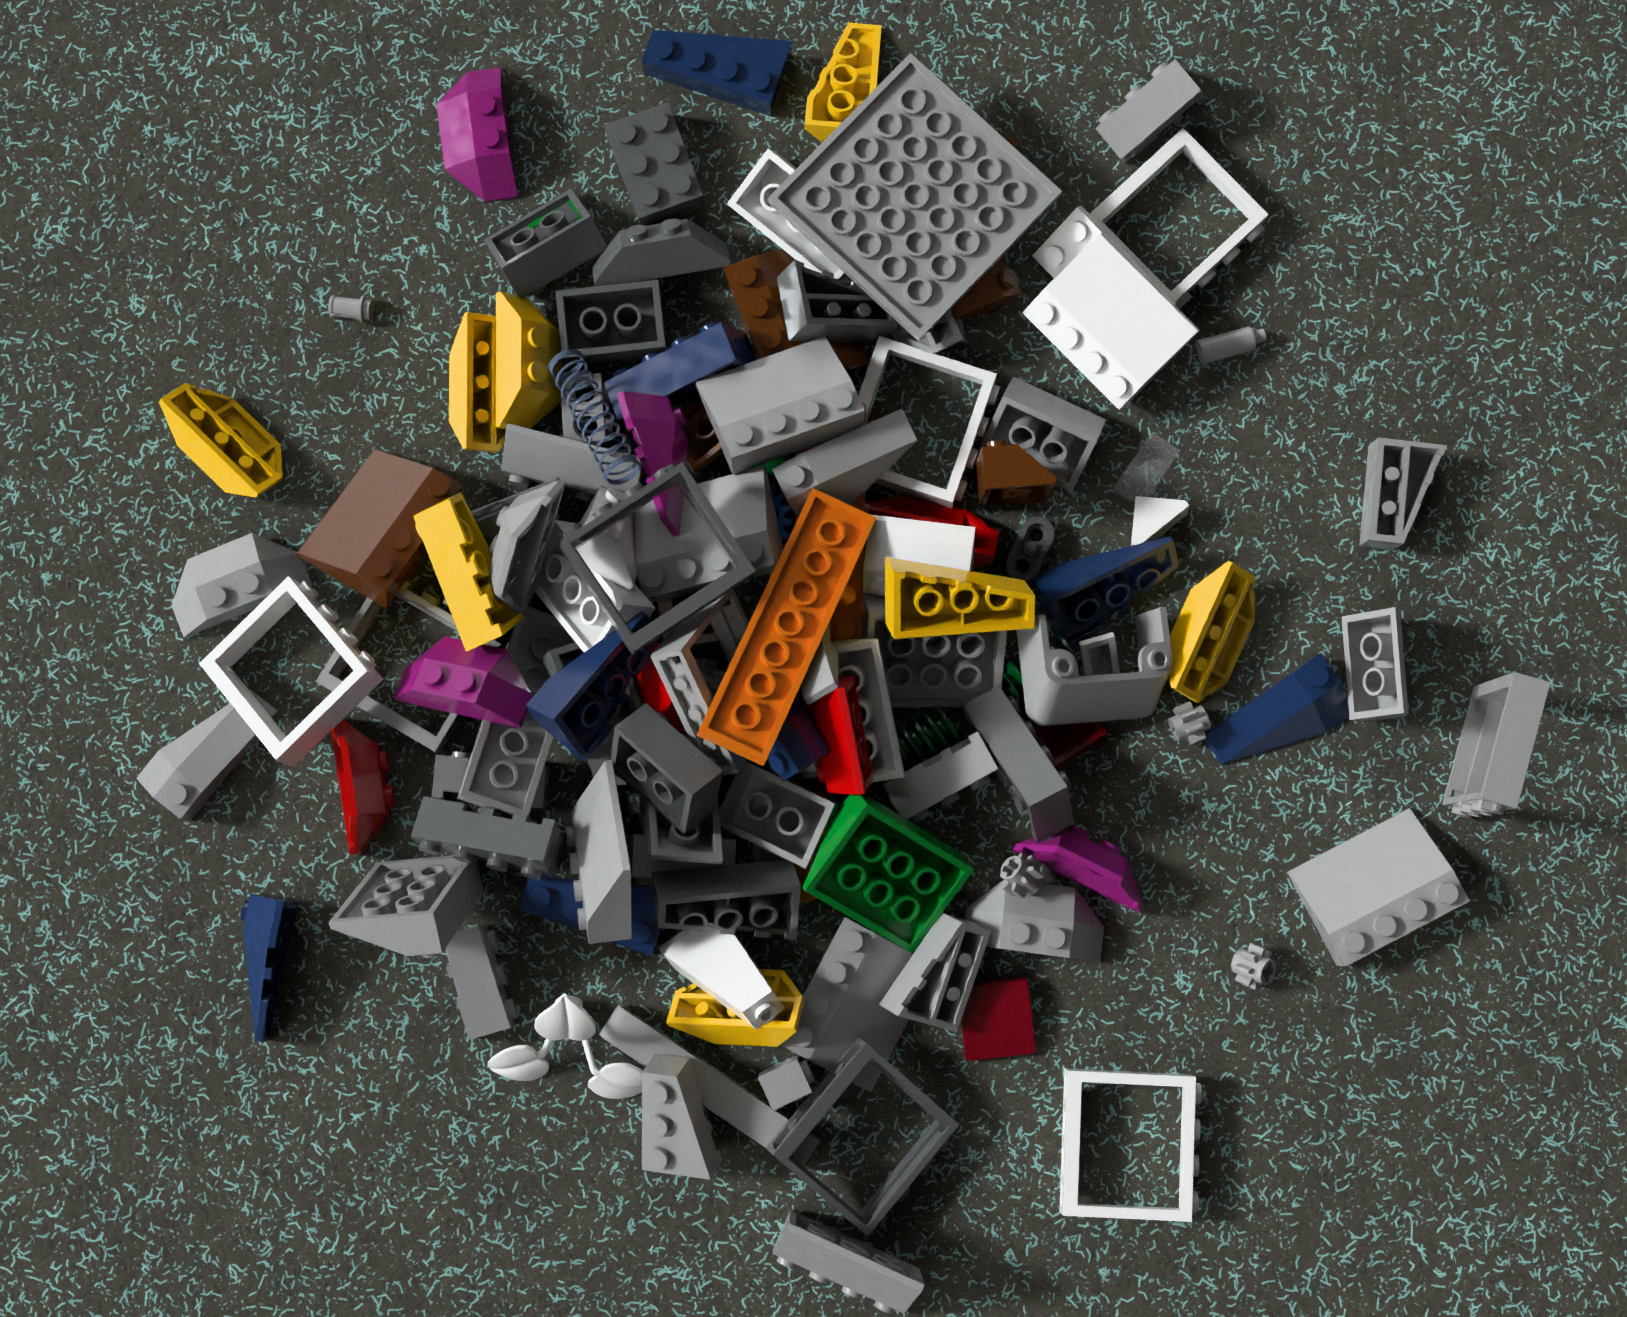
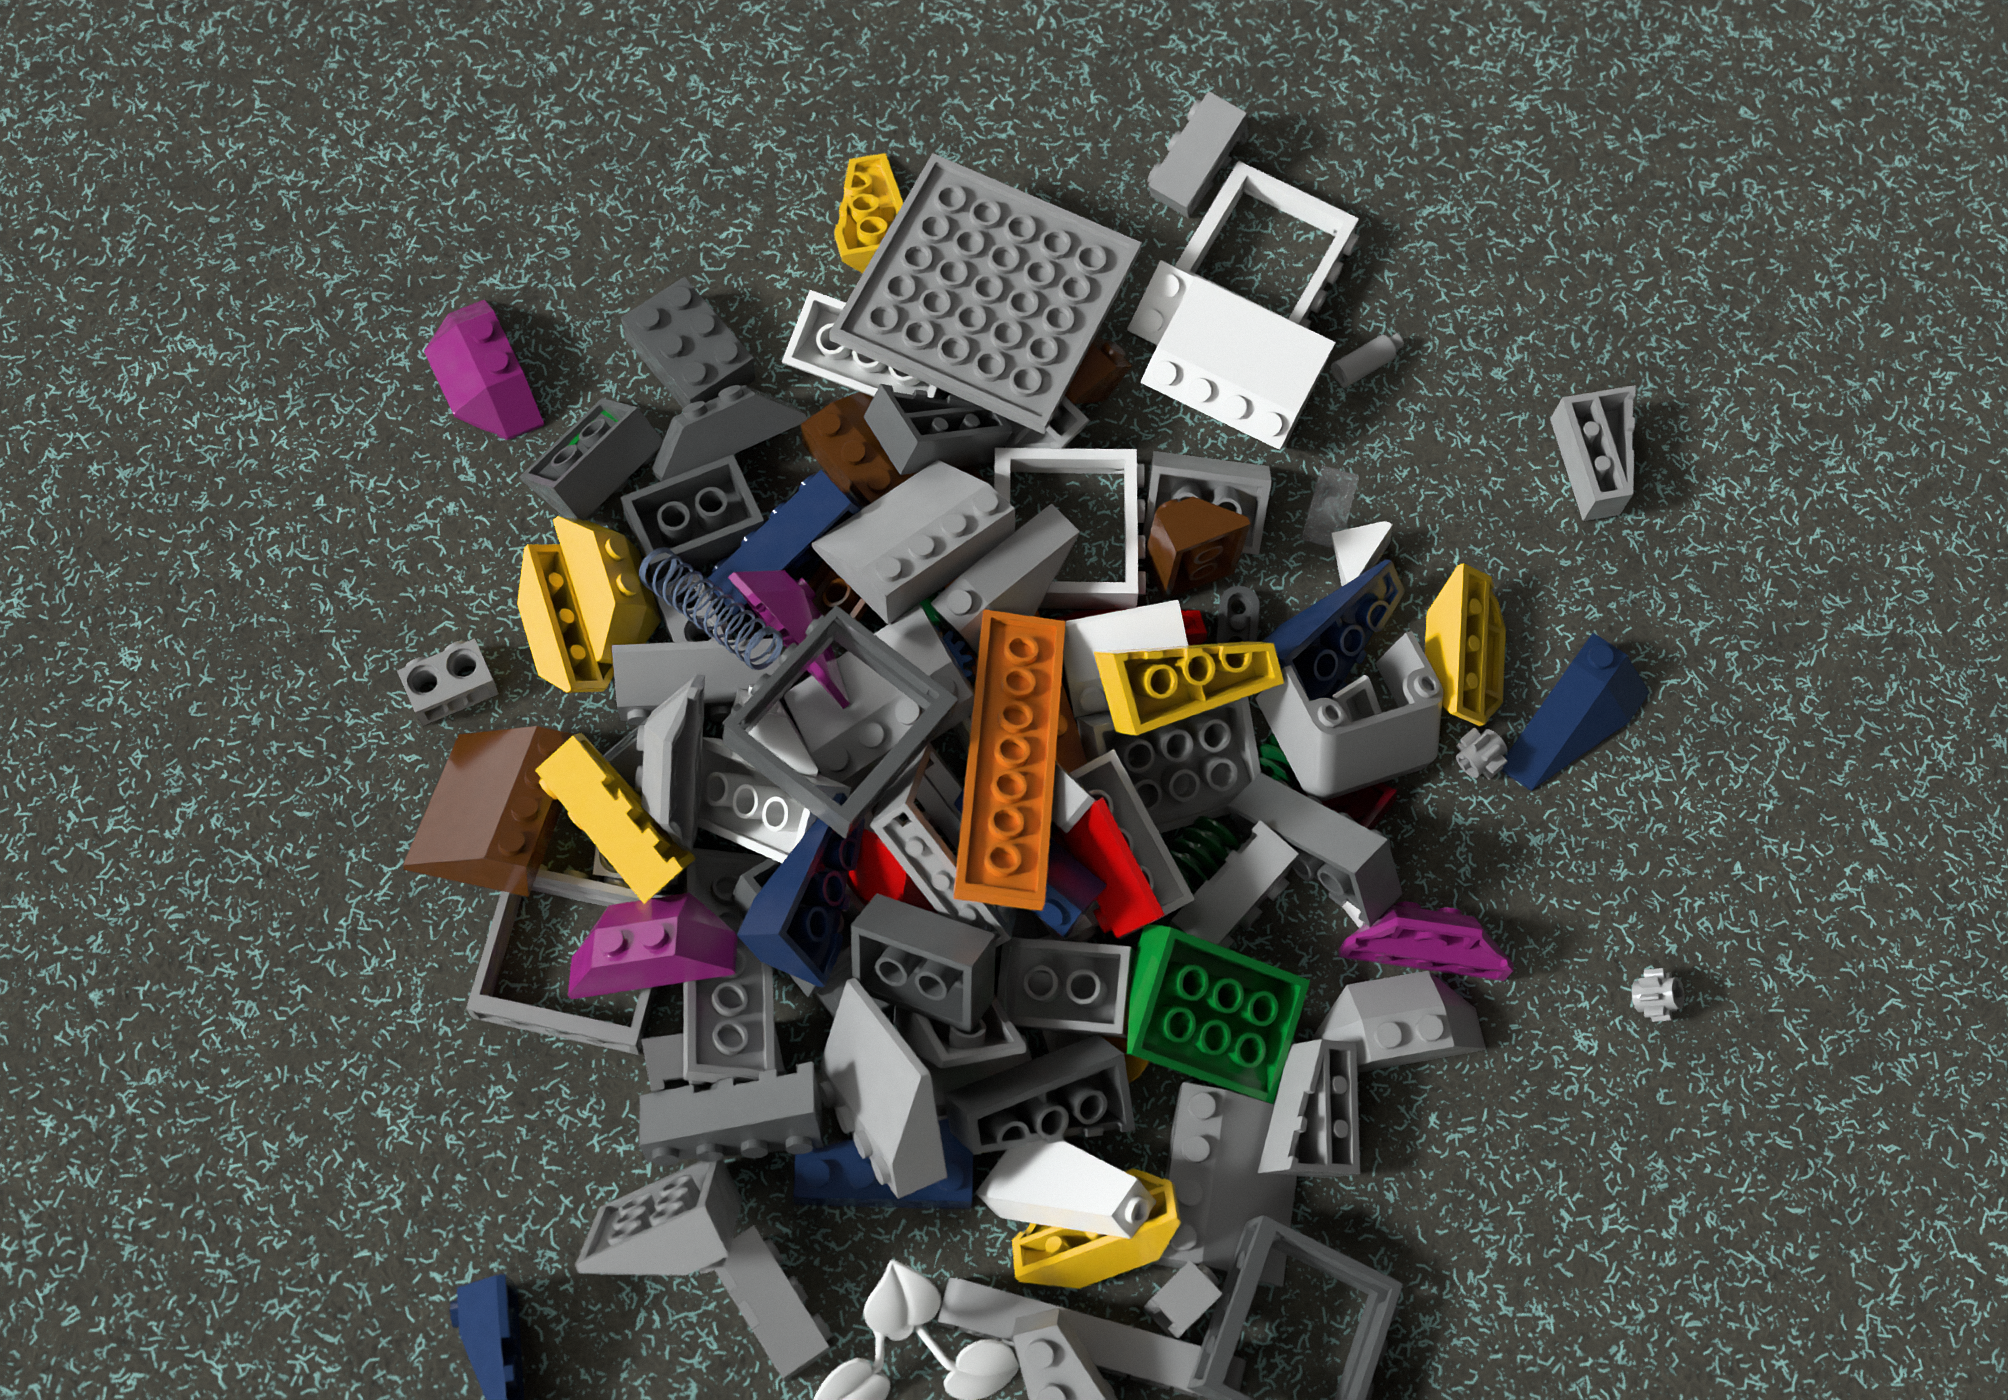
camera: 25 degrees left, 15 degrees down
(198, 761) = (345, 1153): light grey wedge -> none
(223, 440) = (274, 772): yellow wedge -> none
(232, 581) = (333, 930): light grey wedge -> none
(330, 711) = (492, 1036): white window -> none
(351, 308) = (387, 589): light grey pin -> none
(362, 785) = (556, 1114): red wedge -> none
(376, 413) = (451, 691): none -> light grey brick
(721, 66) = (727, 232): dark blue wedge -> none
(998, 1020) = (1399, 1152): dark red slope -> none
(1021, 875) = (1366, 970): light grey gear -> none
(1071, 1145) = (1538, 1268): white window -> none
(1375, 665) = (1657, 627): light grey slope -> none
(1377, 887) = (1753, 868): light grey slope -> none
(1495, 745) = (1836, 598): light grey window -> none

